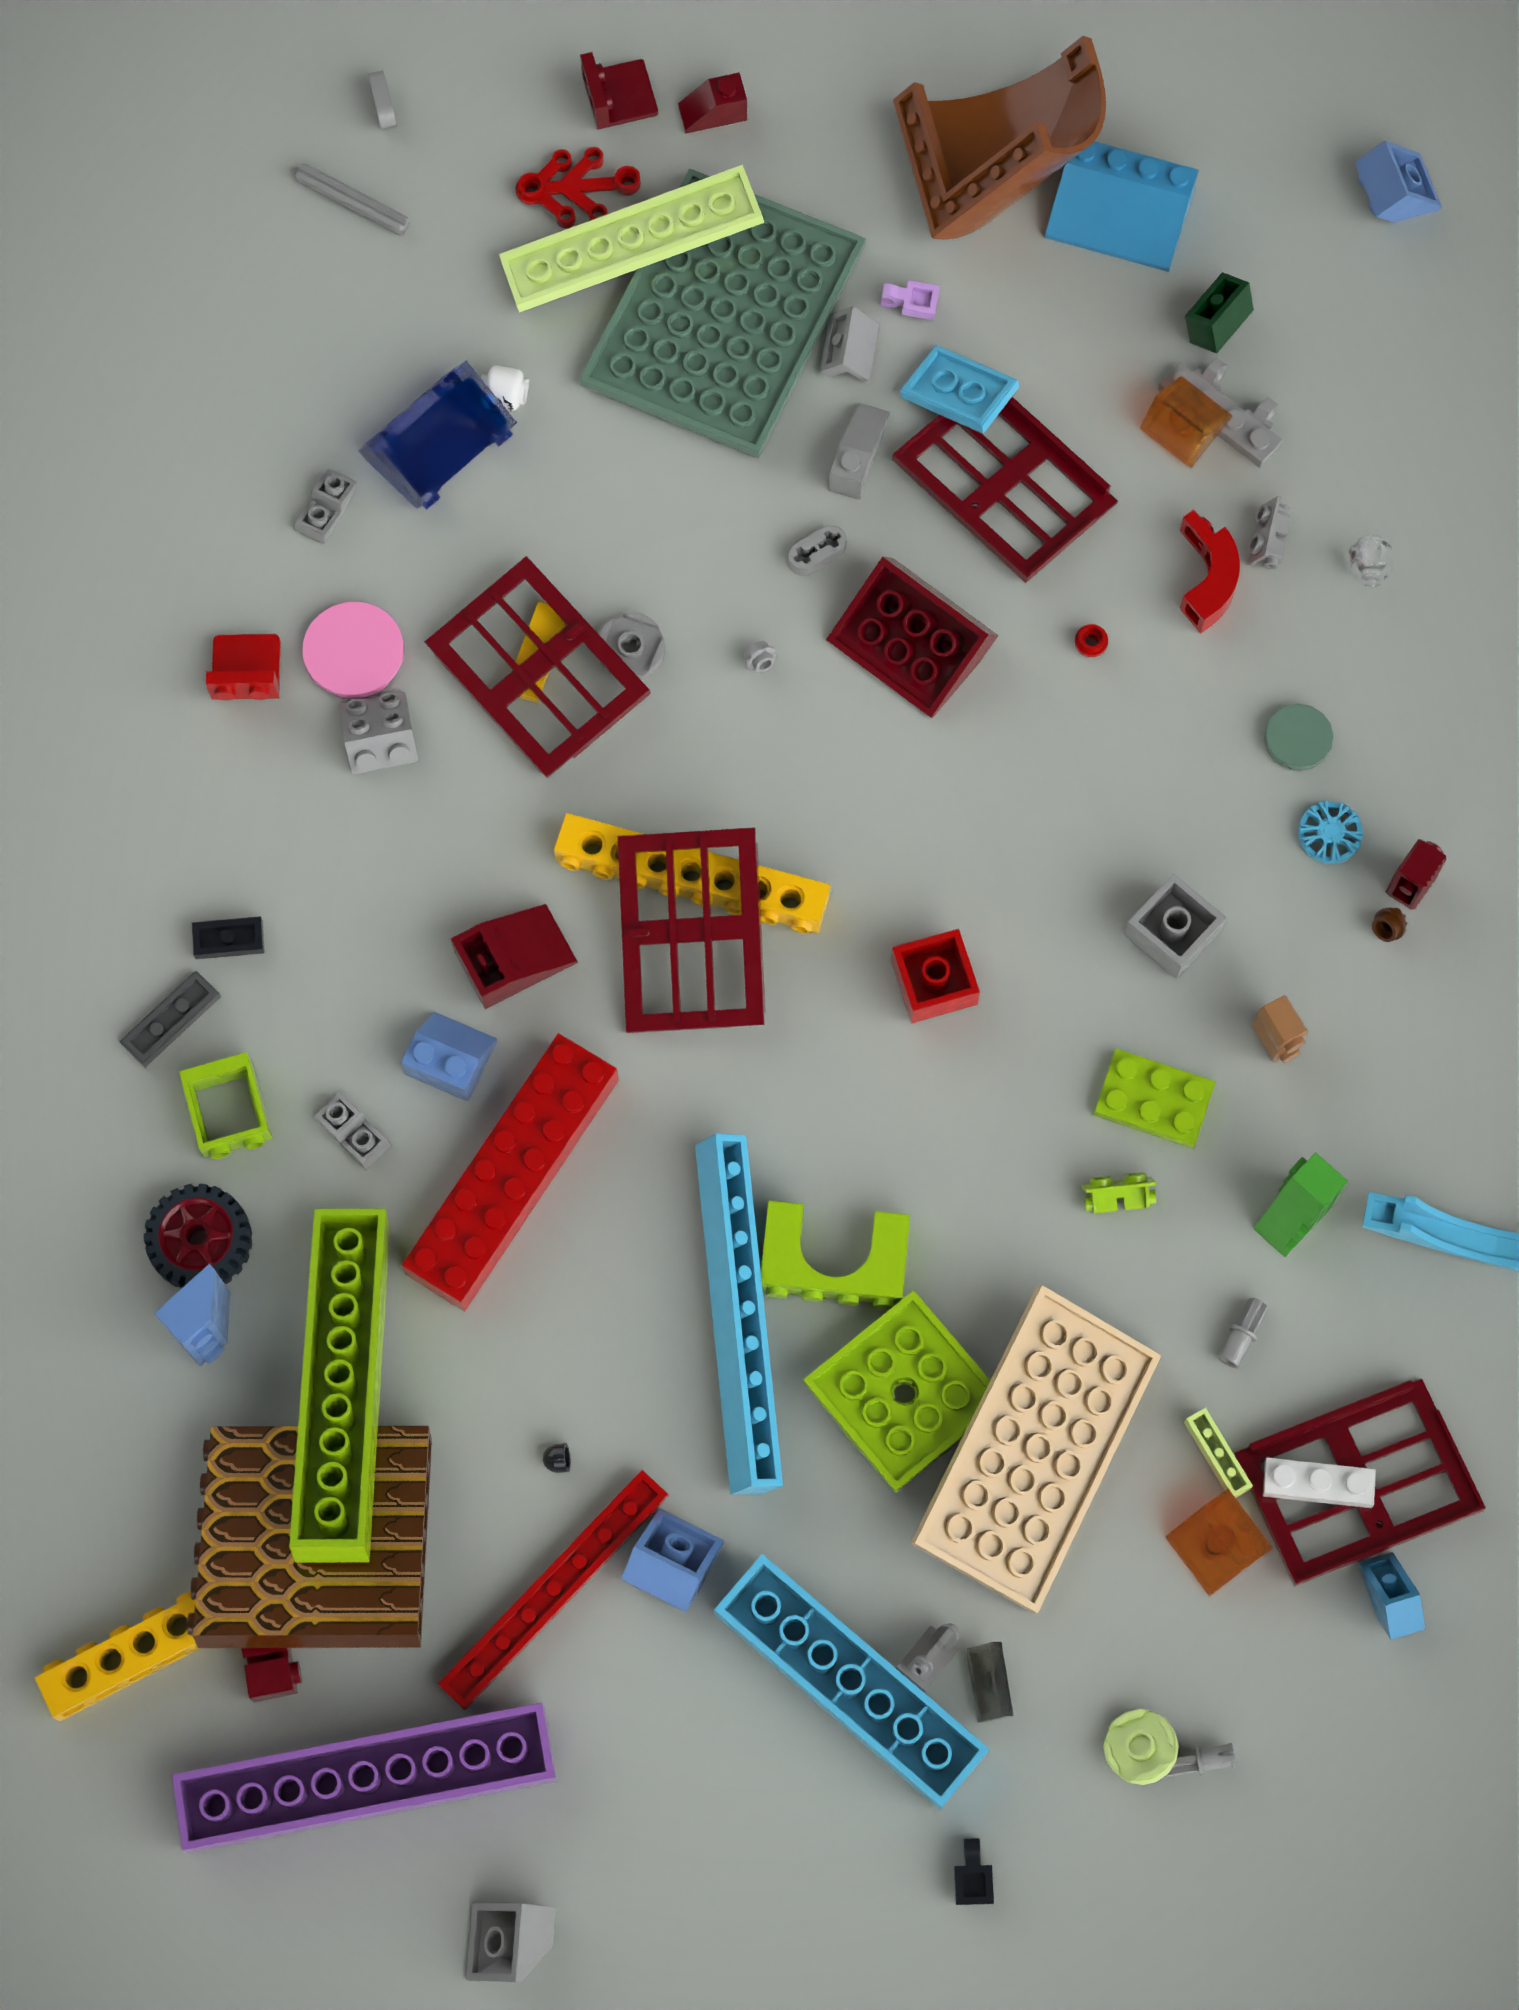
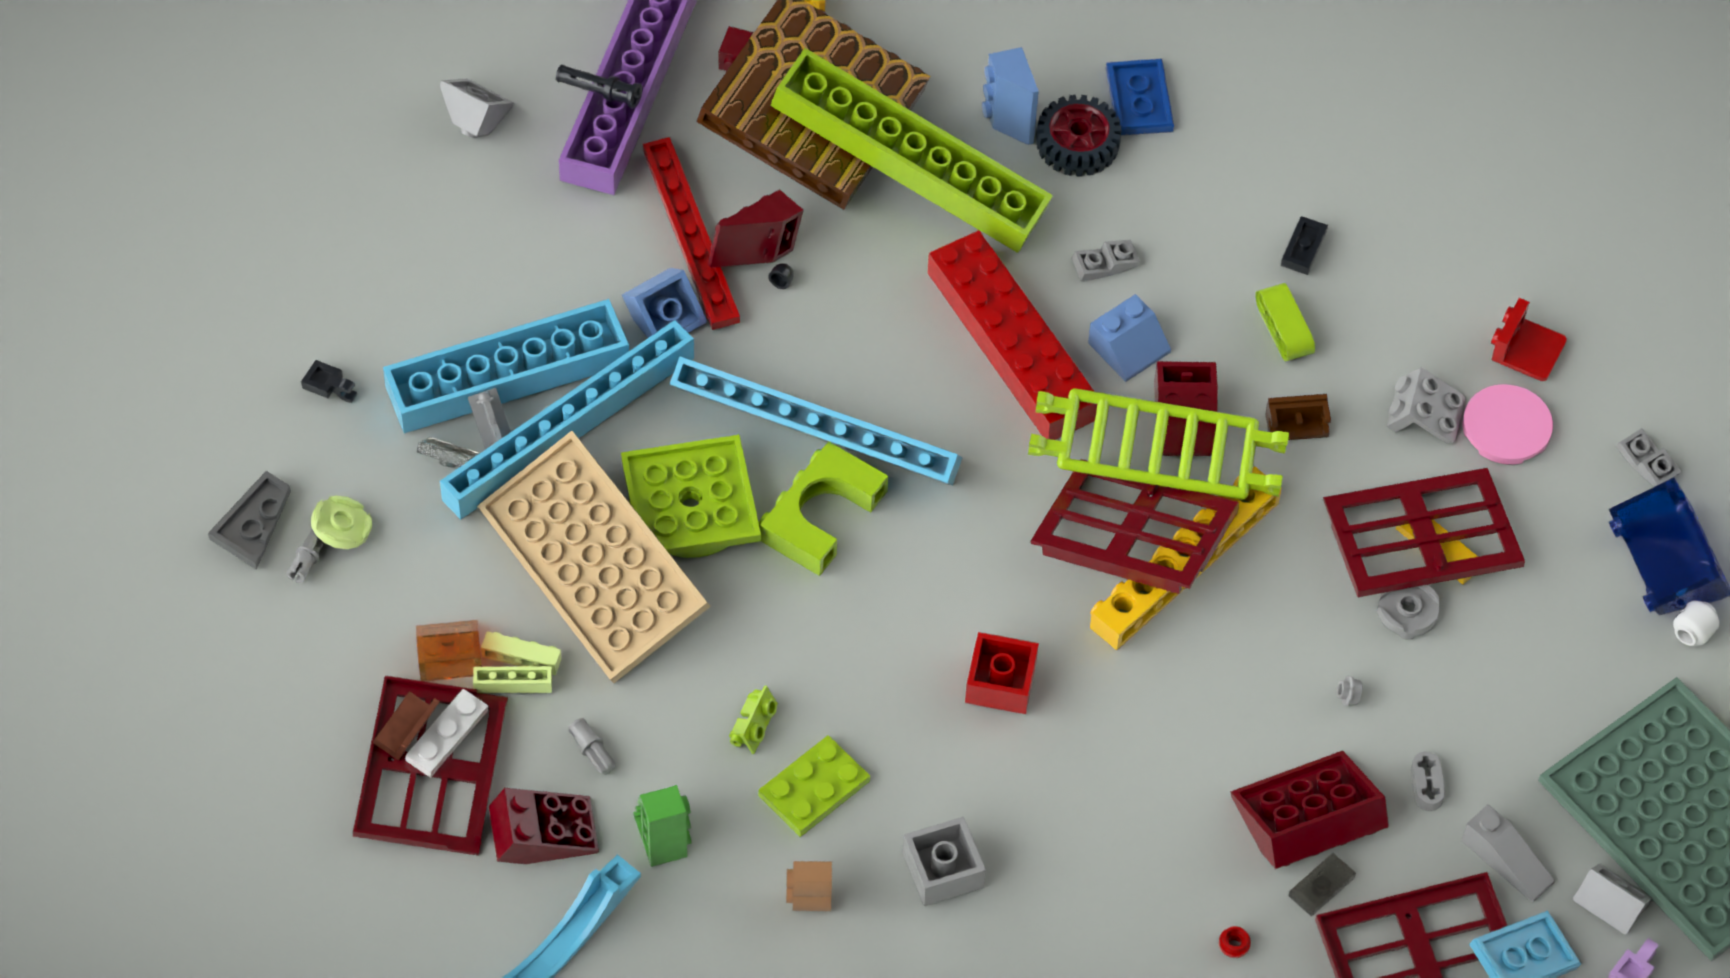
camera: 115 degrees right, 15 degrees down
(102, 1204) = (1140, 96): none -> blue tile
(170, 1019) = (1260, 189): dark grey tile -> none
(215, 1074) = (1172, 170): lime window -> none
(342, 911) = (1285, 322): none -> lime beam
(429, 1767) = (610, 91): none -> black pin
(458, 845) = (1299, 415): none -> reddish brown hinge
(518, 1492) = (757, 232): none -> dark red slope
(630, 932) = (1254, 437): none -> lime bar
(881, 1574) = (576, 412): none -> medium azure brick
(986, 591) = (1322, 884): none -> clear smoke plate
(1180, 1466) = (519, 652): none -> yellowish green piece
(1191, 1848) = (252, 520): none -> dark grey wing
(1342, 1520) = (404, 725): none -> copper panel
(1362, 1328) = (541, 826): none -> dark red slope
(1393, 1596) = (333, 736): dark azure slope -> none

